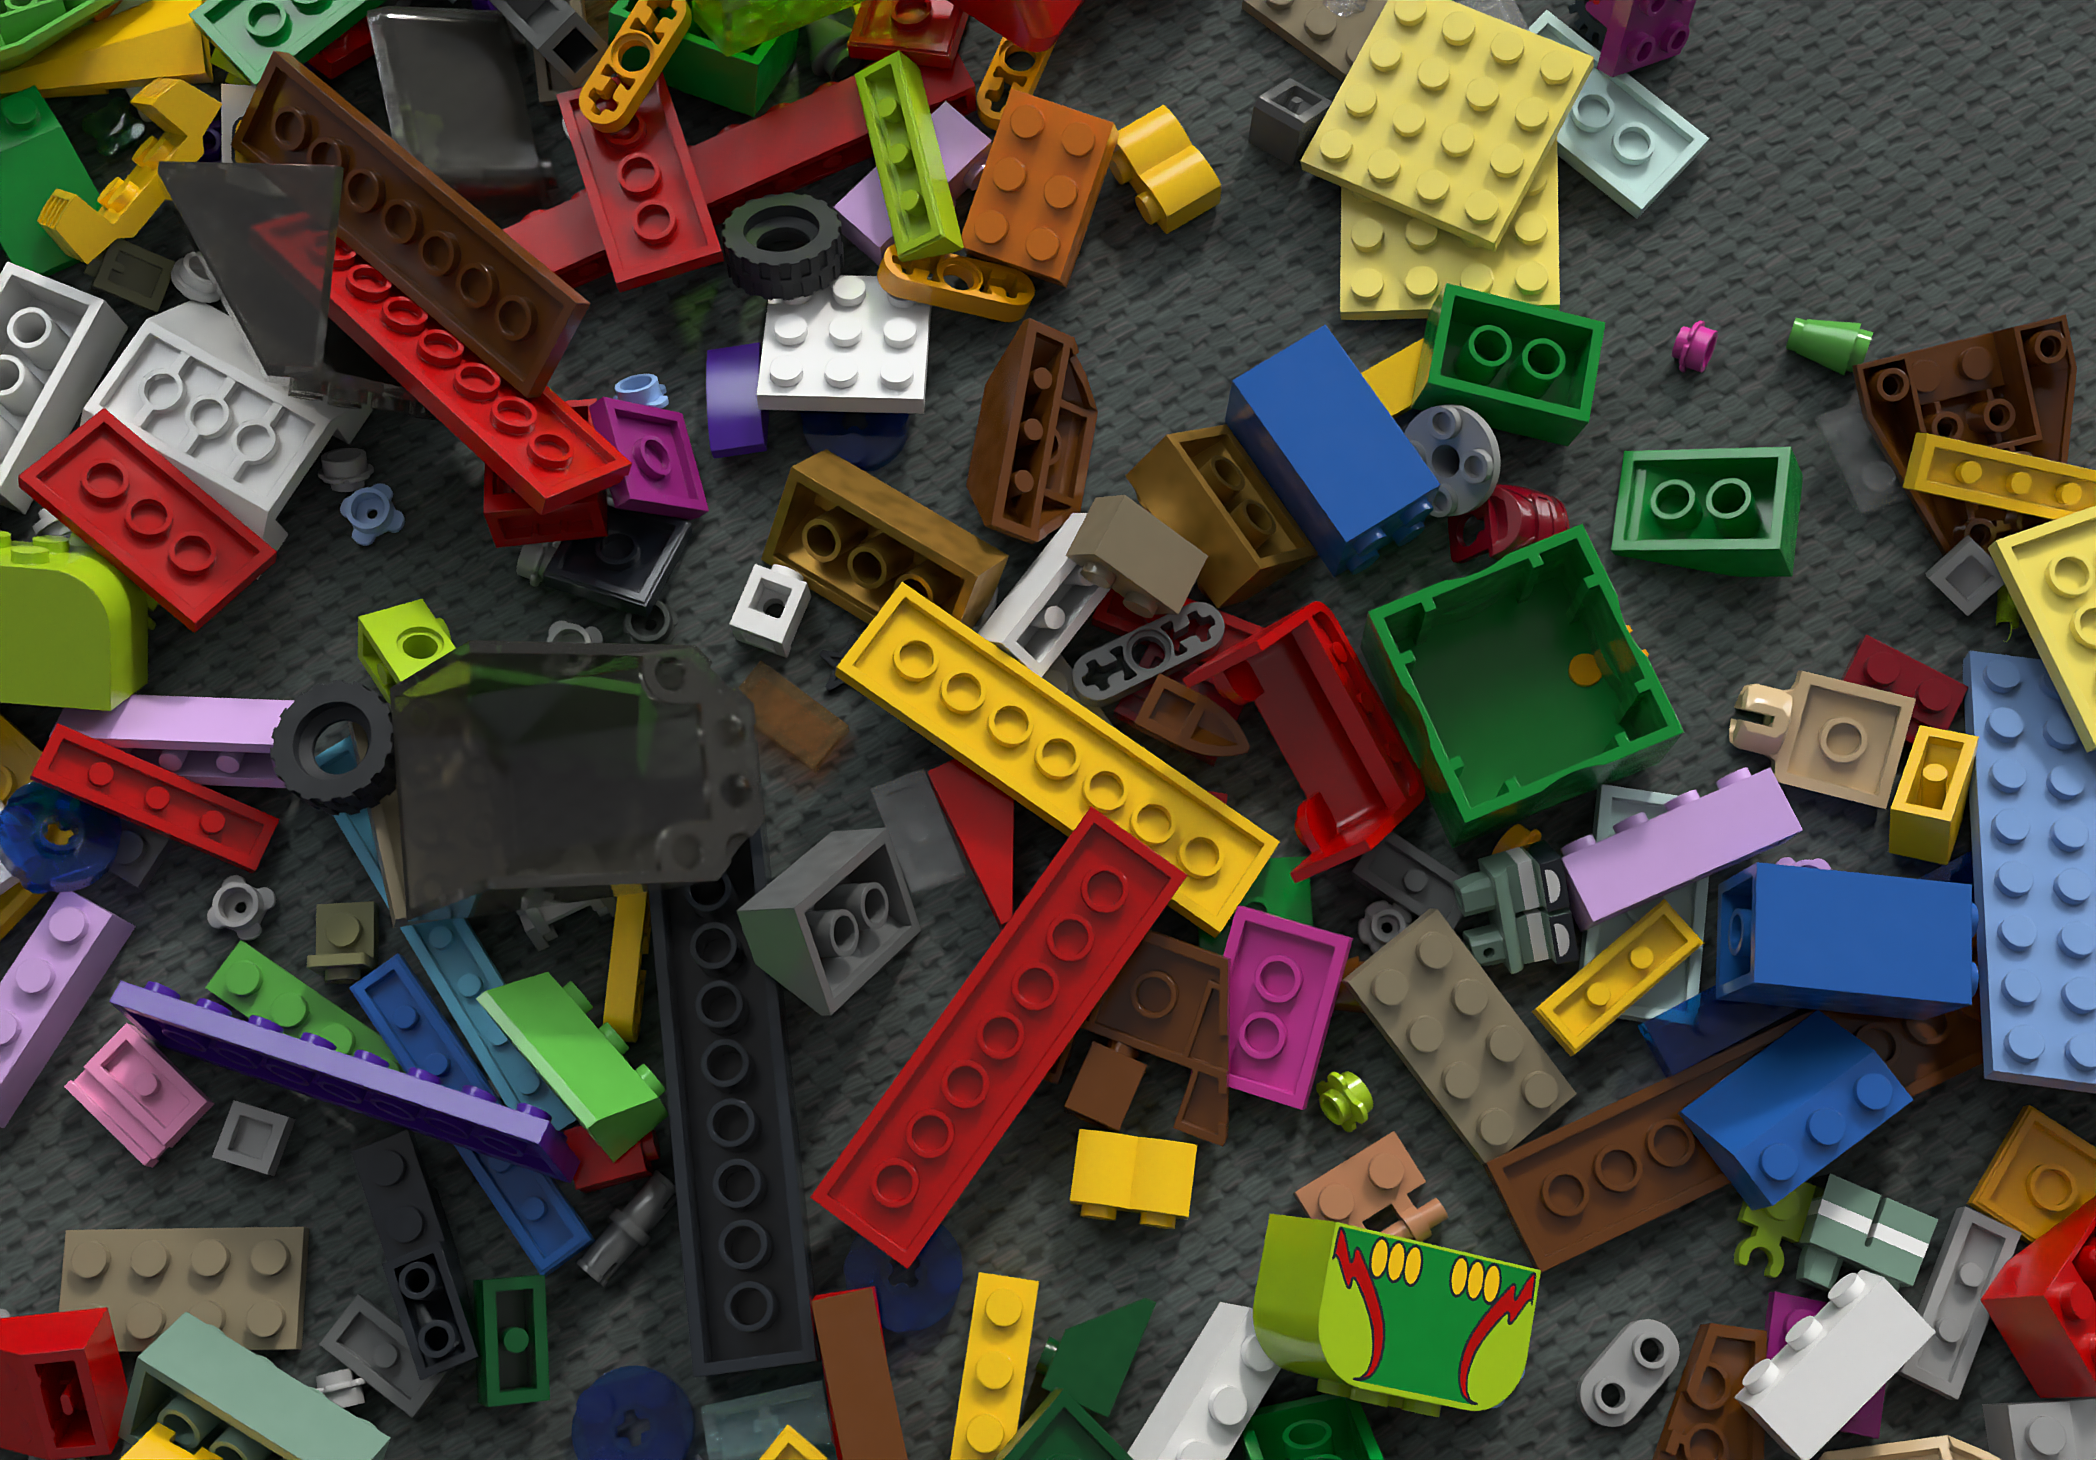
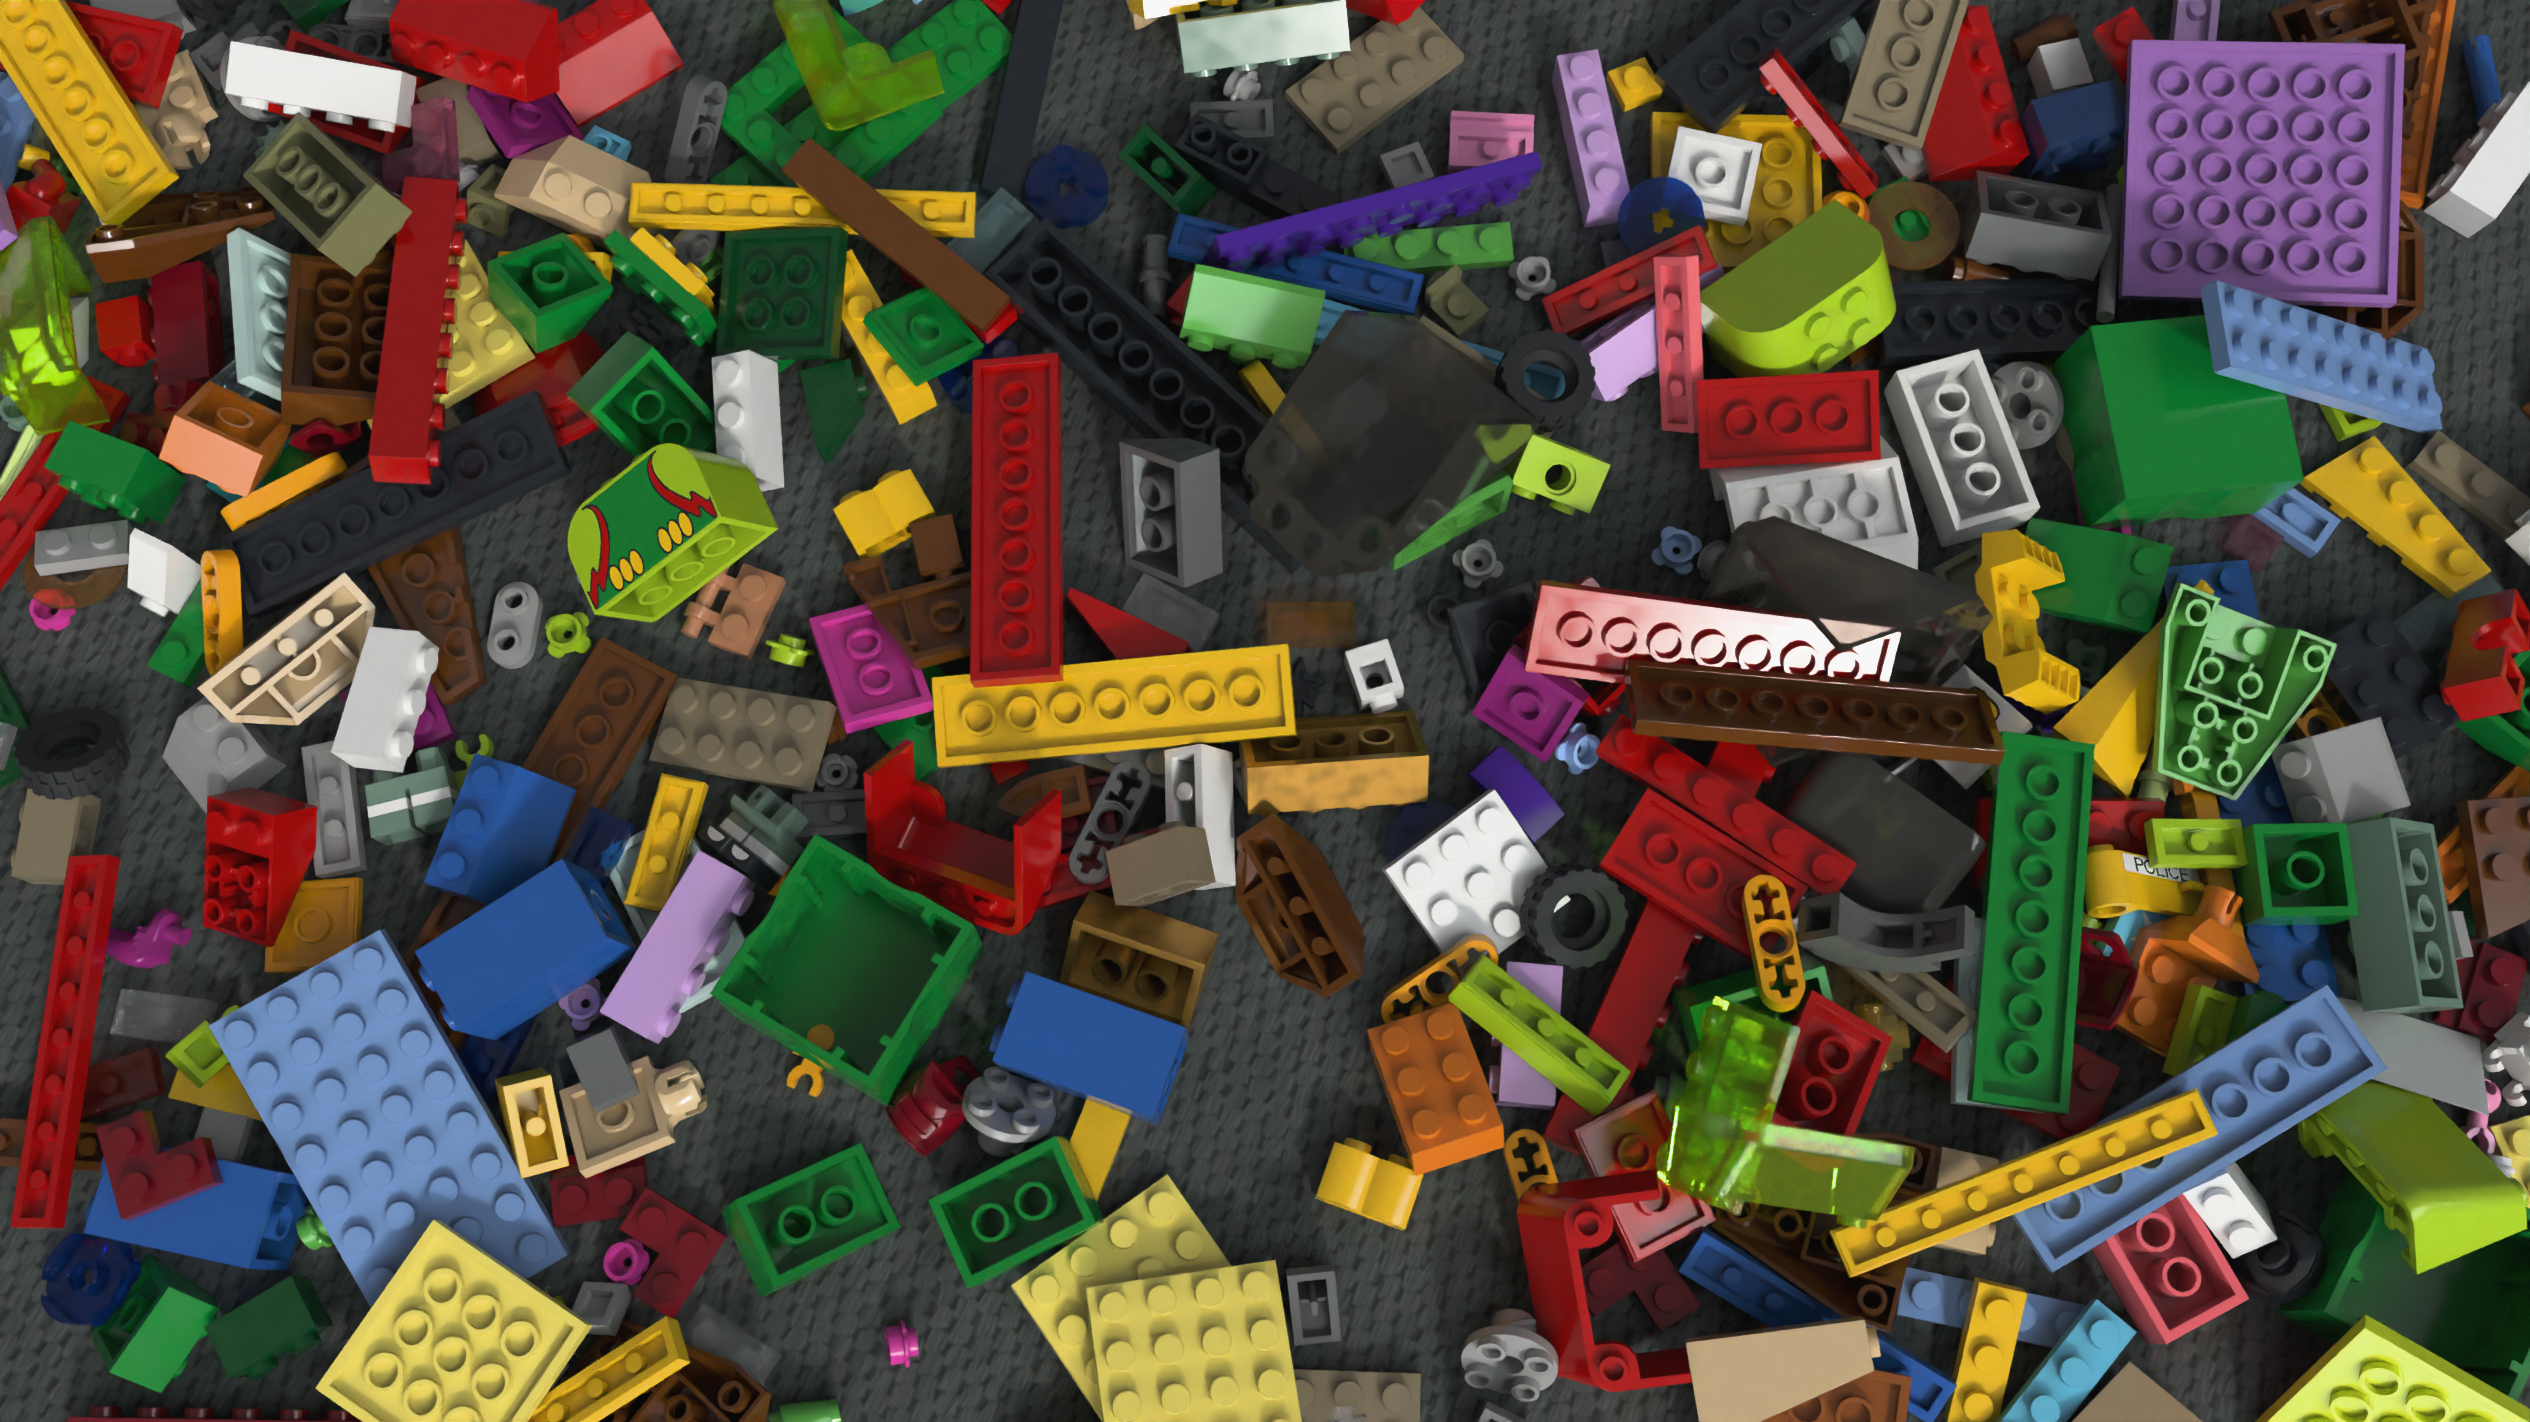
camera: 145 degrees right, 0 degrees up
(168, 687) = (1678, 340): none -> coral plate
(562, 218) = (1725, 807): none -> red plate
(941, 1339) = (923, 335): none -> green plate
(1591, 1307) = (559, 625): none -> lime plate
(1827, 797) = (604, 1066): none -> dark grey slope
(1851, 581) = (683, 1246): none -> dark red plate
(1927, 599) = (615, 1262): none -> dark pink plate

